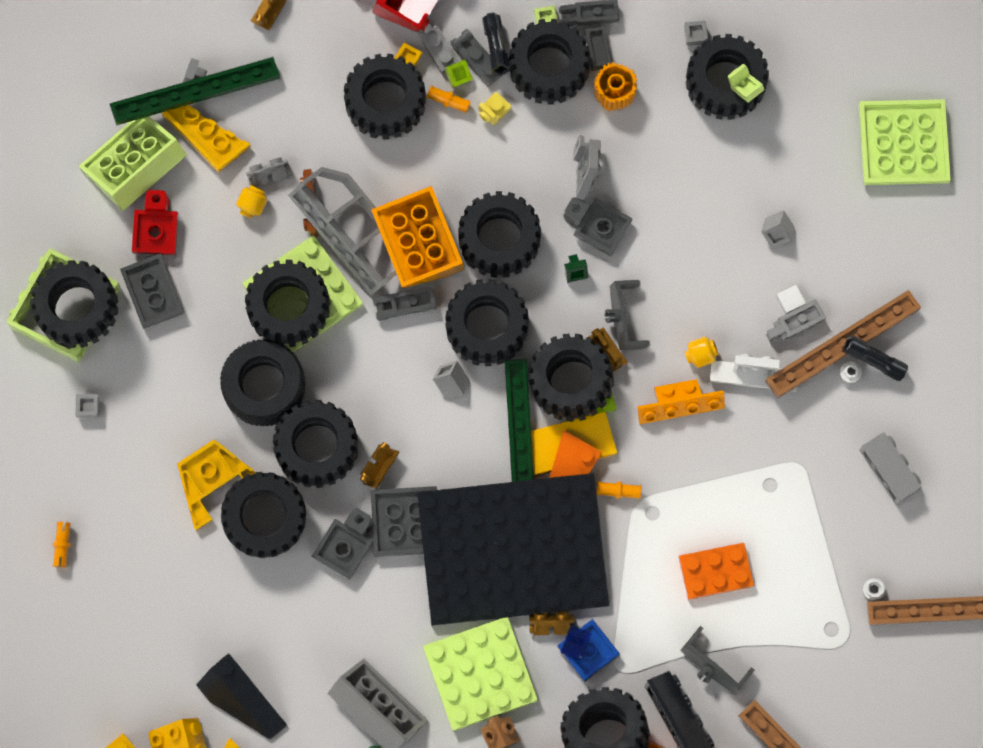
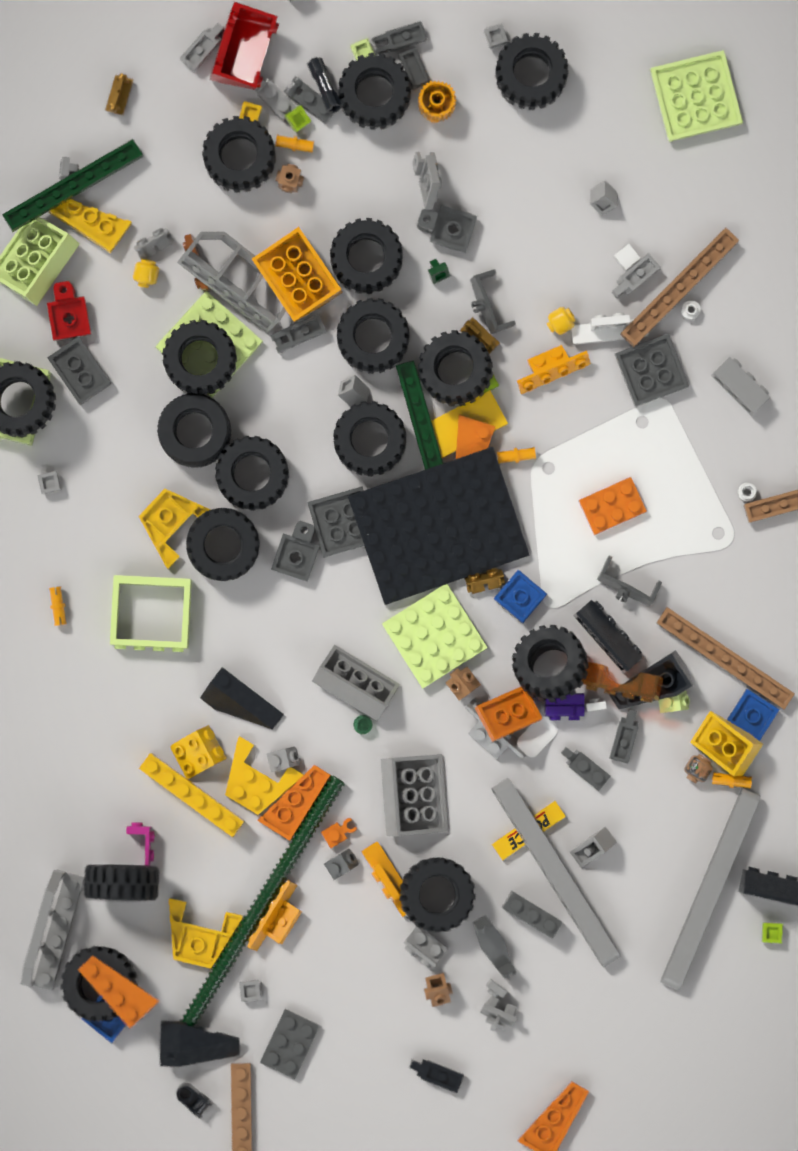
camera: 15 degrees left, 10 degrees up
(165, 614) = (151, 581): none -> yellowish green window
(374, 473) = (307, 487): pearl gold hinge -> none
(436, 140) = (289, 185): none -> medium nougat brick
(457, 406) = (369, 412): none -> black tyre
(493, 109) = (335, 143): light yellow bracket -> none
(575, 643) = (509, 594): clear blue panel -> none
(745, 84) = (550, 77): yellowish green bracket -> none
(792, 429) = (651, 370): none -> dark grey plate
(887, 365) = (698, 291): black axle -> none

